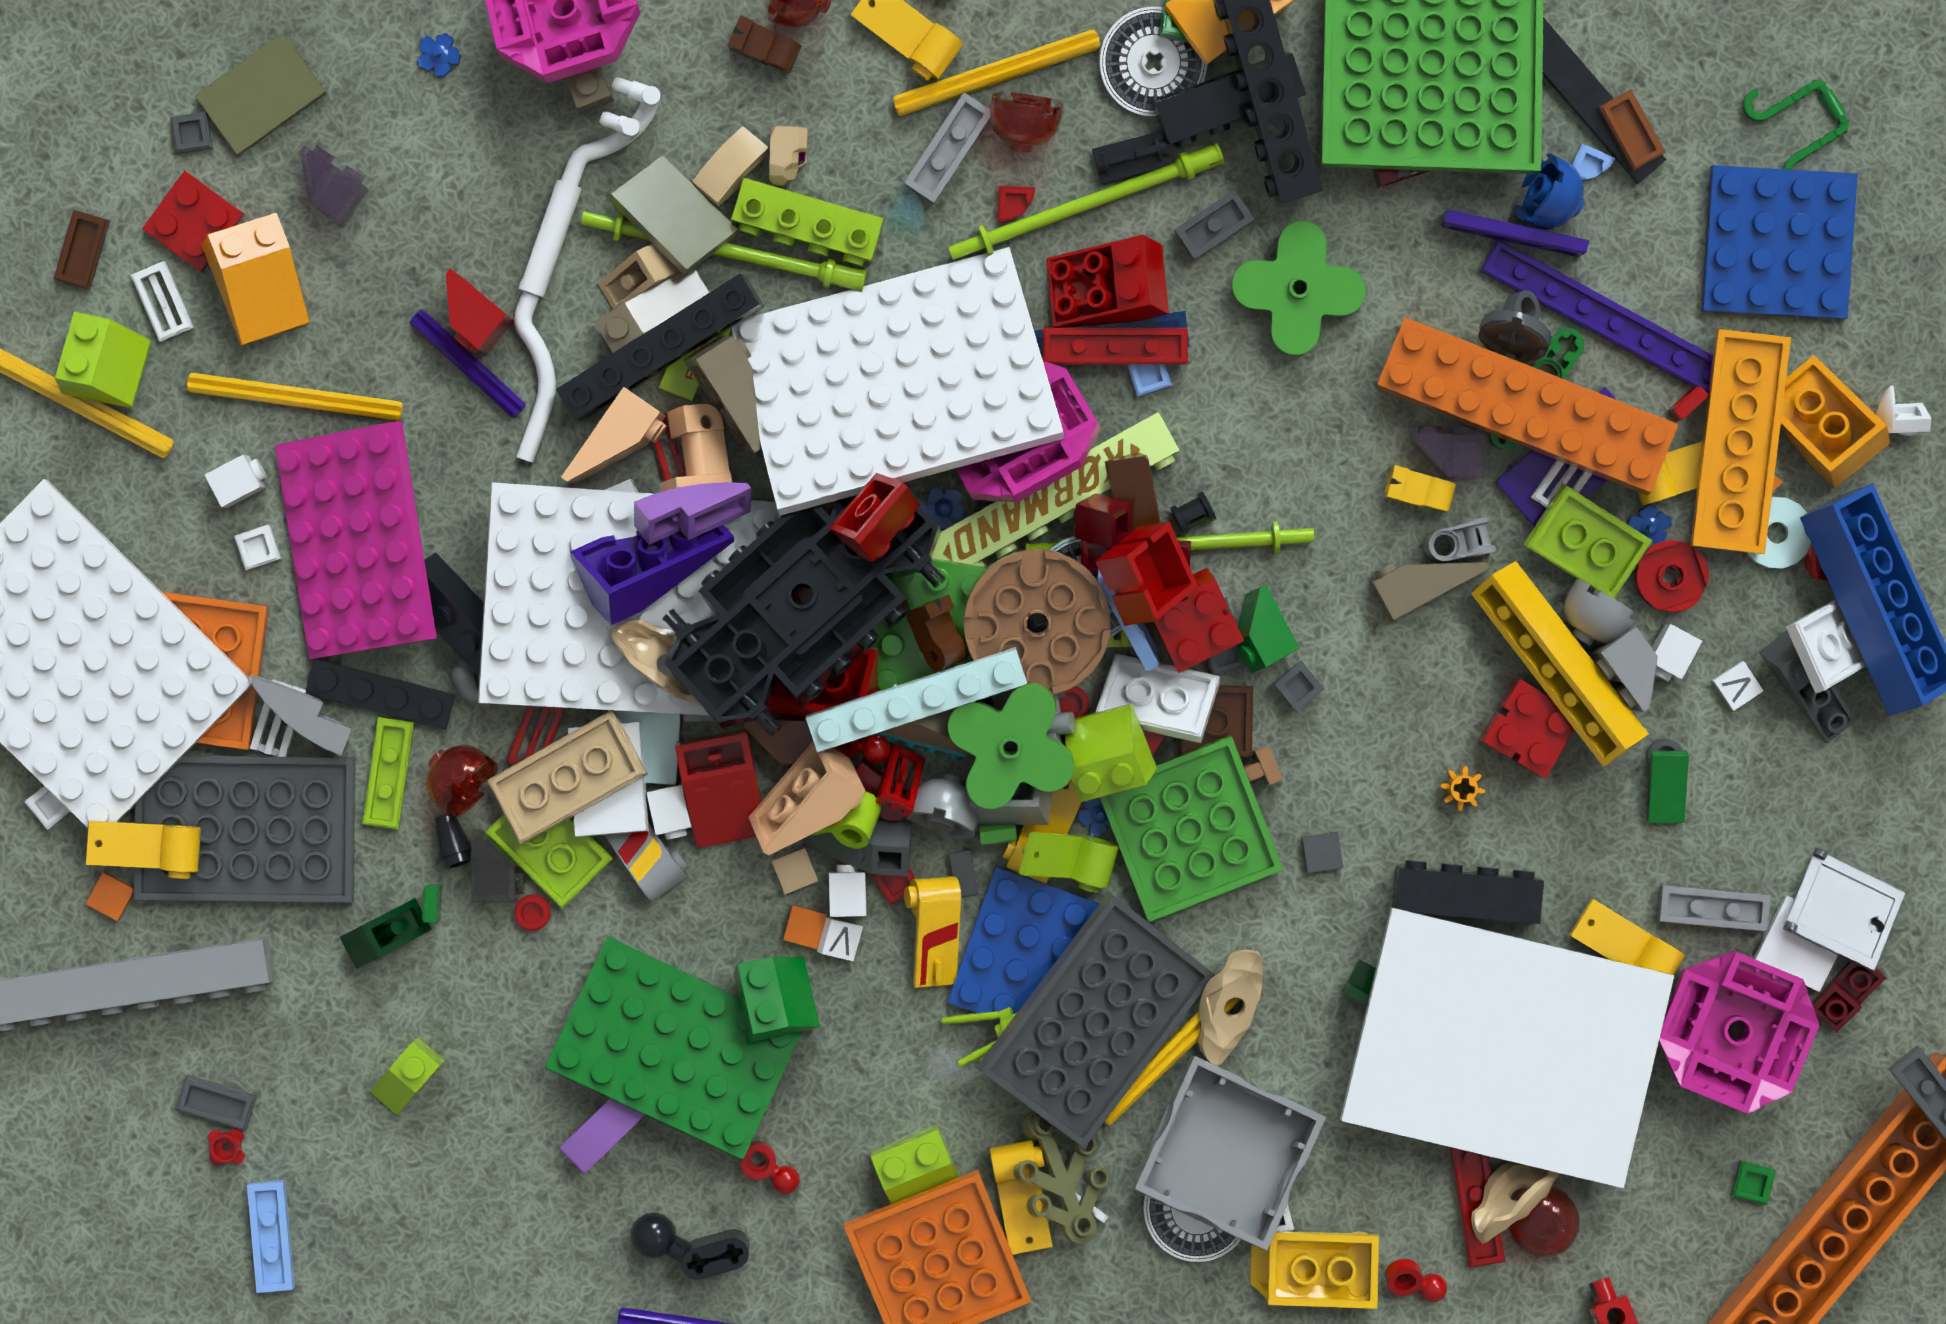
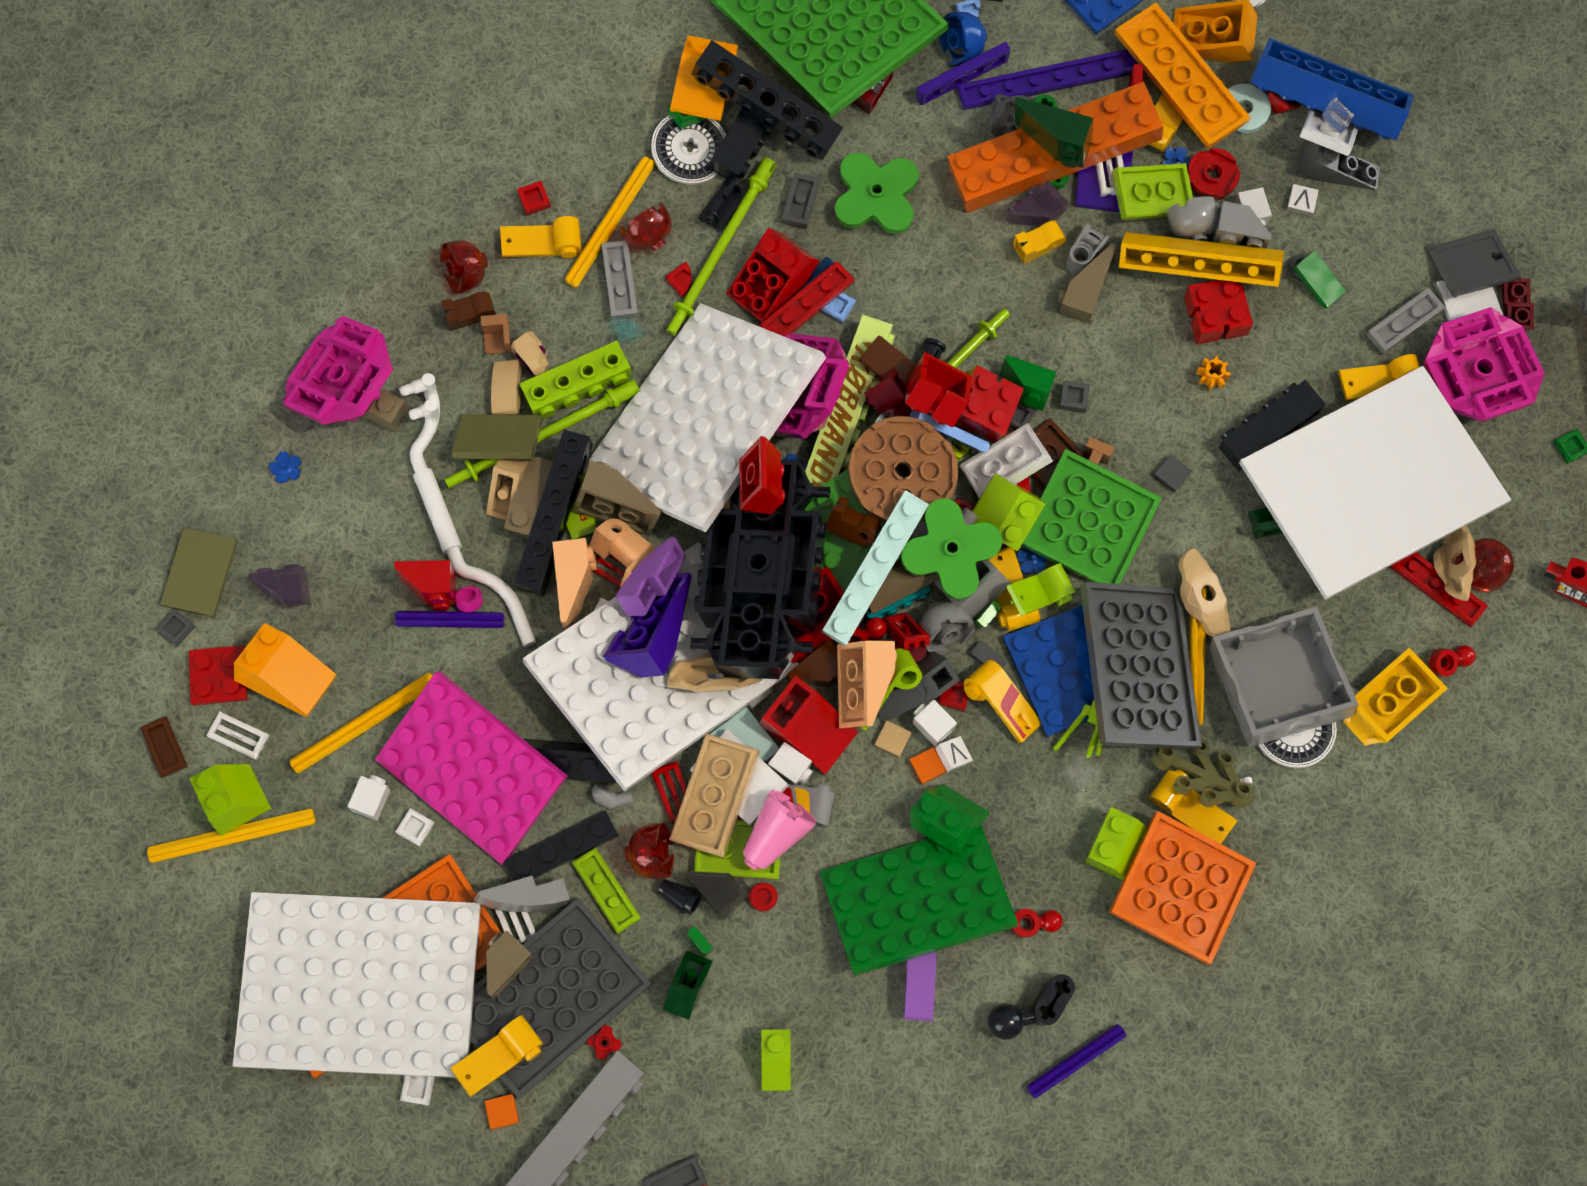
camera: 50 degrees left, 15 degrees down
(227, 761) = (504, 962): none -> dark tan slope
(265, 926) = (612, 1043): none -> red plate
(503, 360) = (468, 599): none -> dark pink tile
(596, 867) = (776, 830): none -> bright pink cone
(770, 98) = (496, 334): none -> medium nougat panel
(1530, 416) = (1058, 131): none -> dark green slope
(1849, 639) = (1337, 115): none -> clear plate

